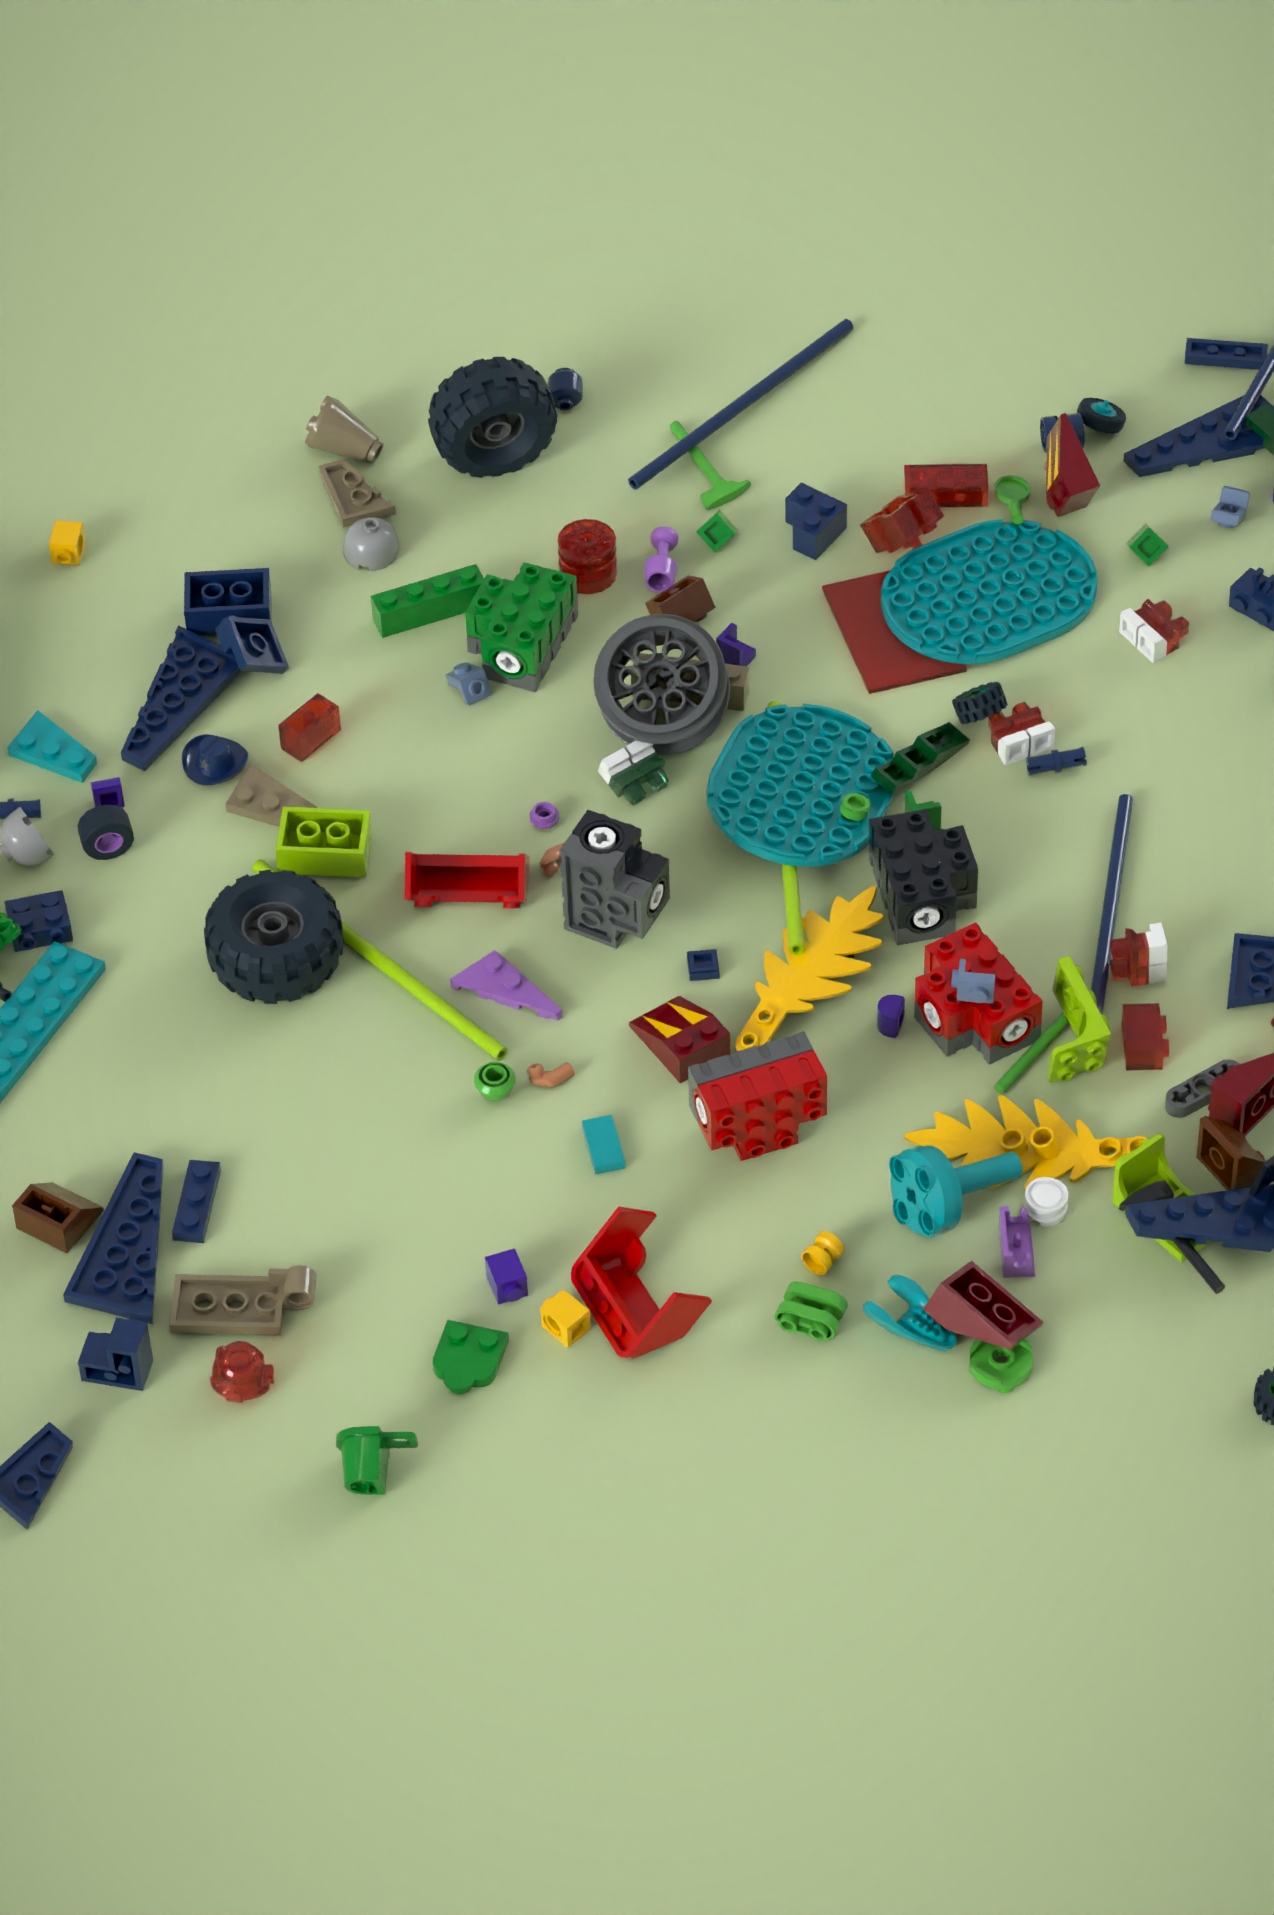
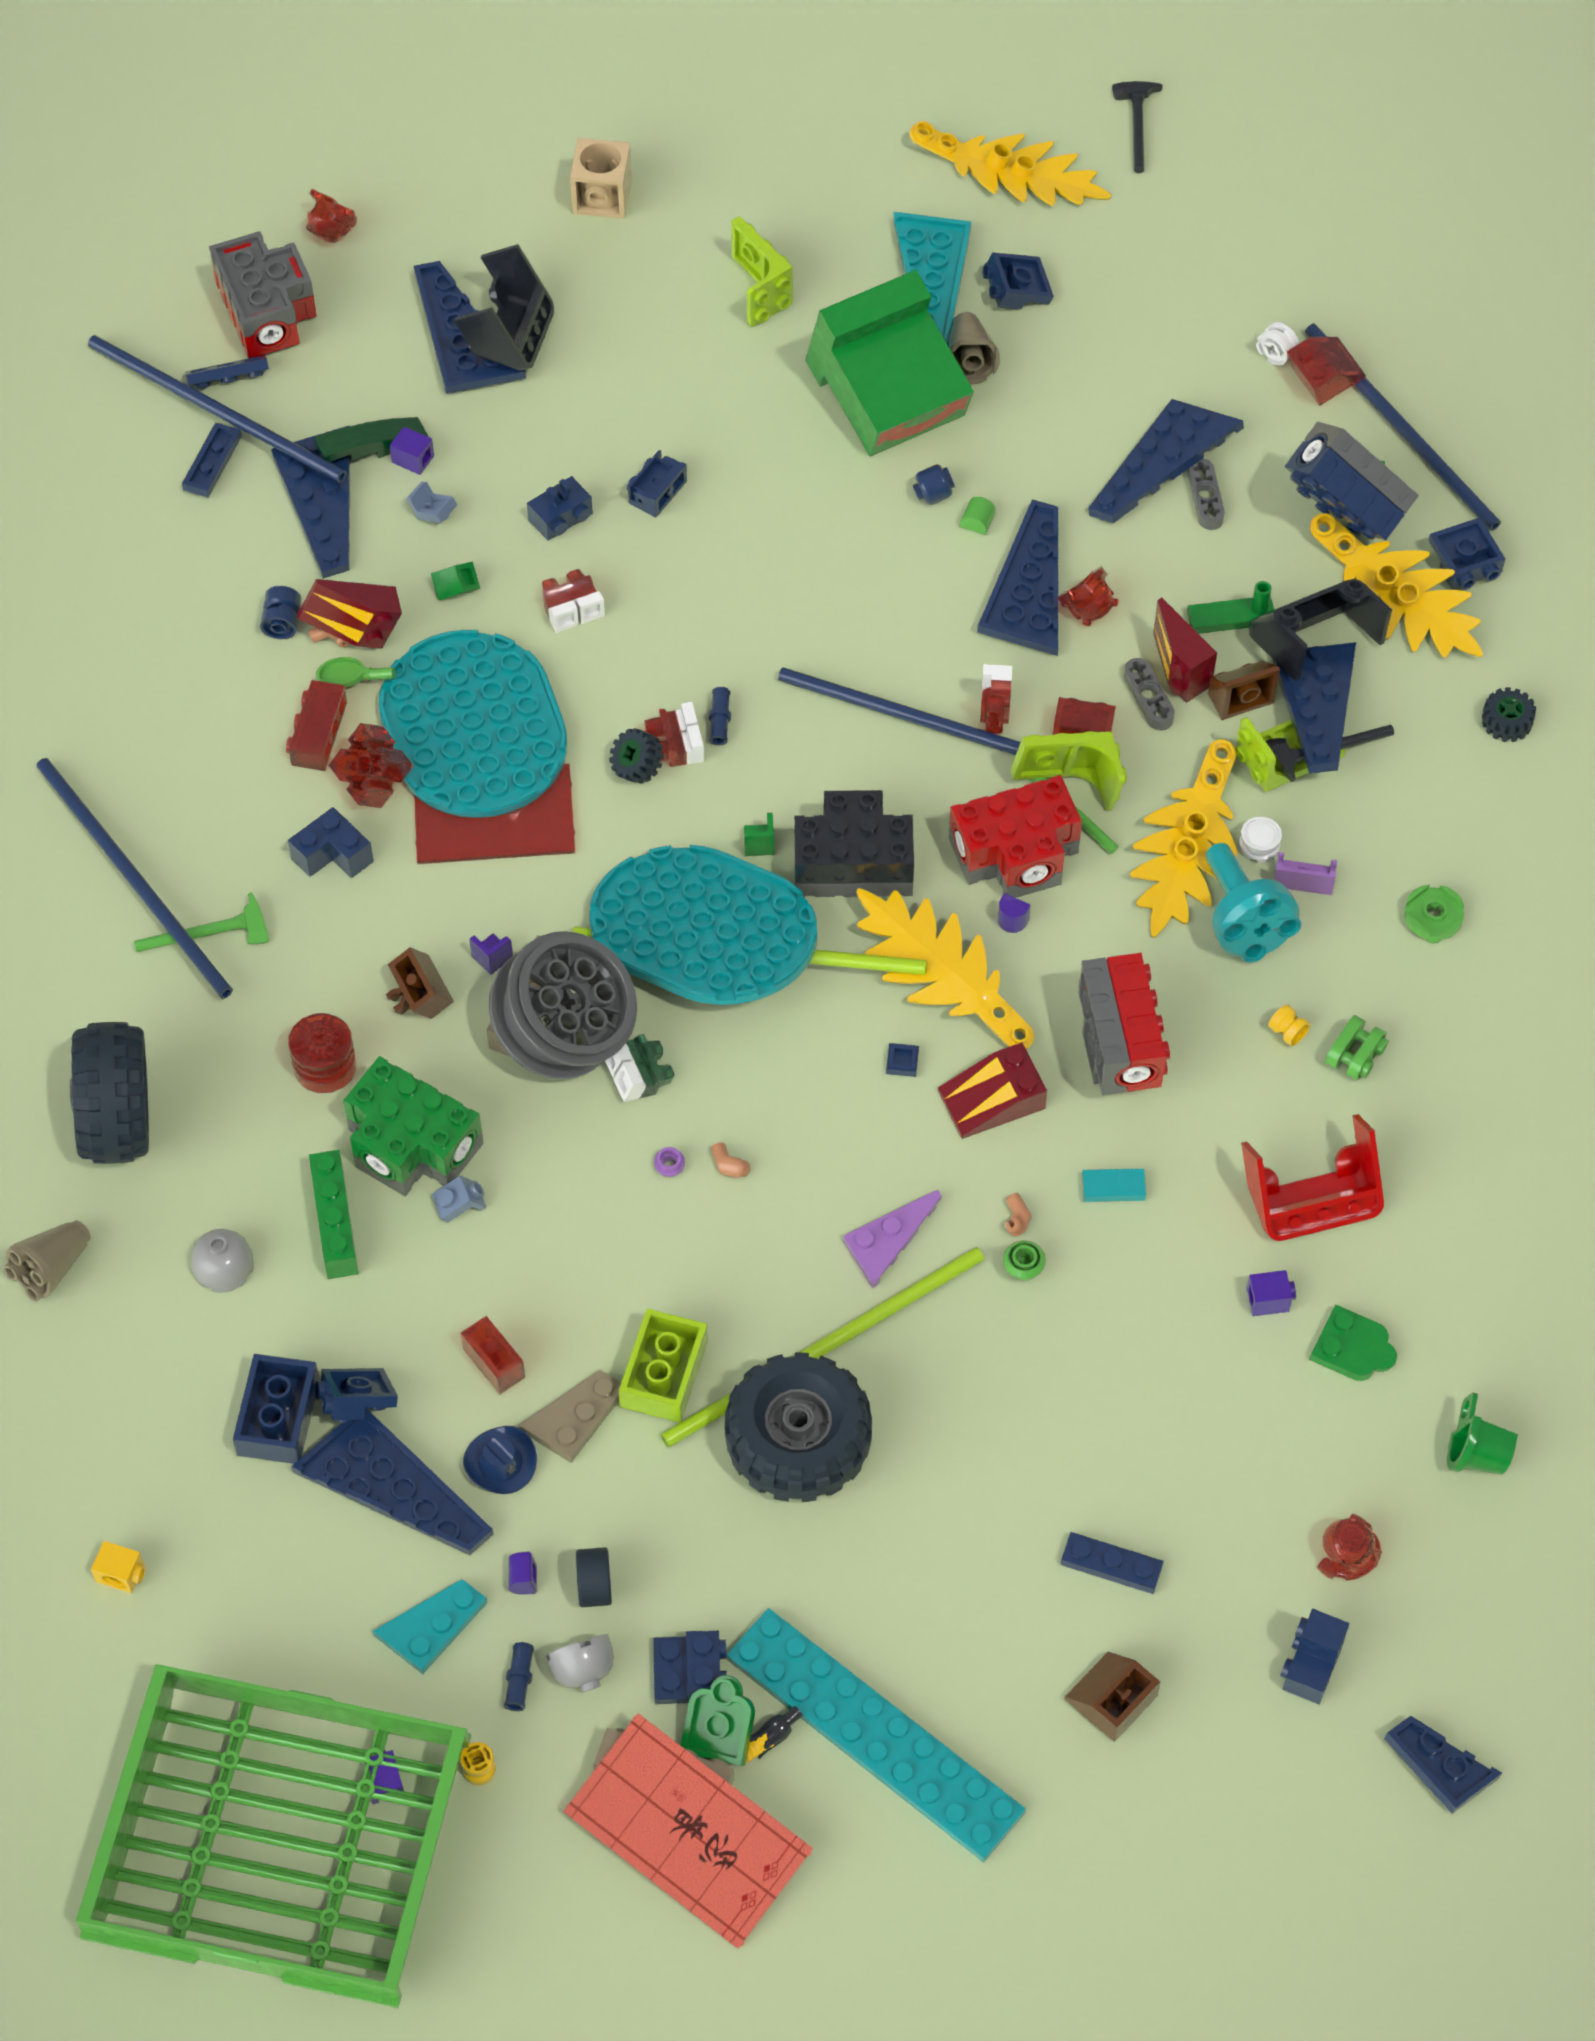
camera: 80 degrees left, 10 degrees up
(122, 1254) = (1171, 1639): dark blue wing -> none
(262, 1297) = (1257, 1515): dark tan hinge -> none
(351, 494) = (139, 1267): dark tan wing -> none
(466, 879) = (741, 1232): red windscreen -> none
(565, 1318) = (1329, 1251): yellow brick -> none
(566, 388) = (50, 1033): dark blue head -> none
(611, 881) = (821, 1099): dark grey piece -> none
(661, 569) = (358, 994): medium lavender piece -> none
(717, 530) = (313, 934): green panel -> none
(855, 806) = (751, 883): bright green tile -> none
(916, 1322) = (1376, 966): teal animal -> none
(921, 758) = (684, 818): dark green slope -> none
(973, 986) = (1044, 824): sand blue bracket -> none
(981, 1308) = (1389, 910): dark red slope -> none
(1101, 415) = (265, 574): black wheel -> none

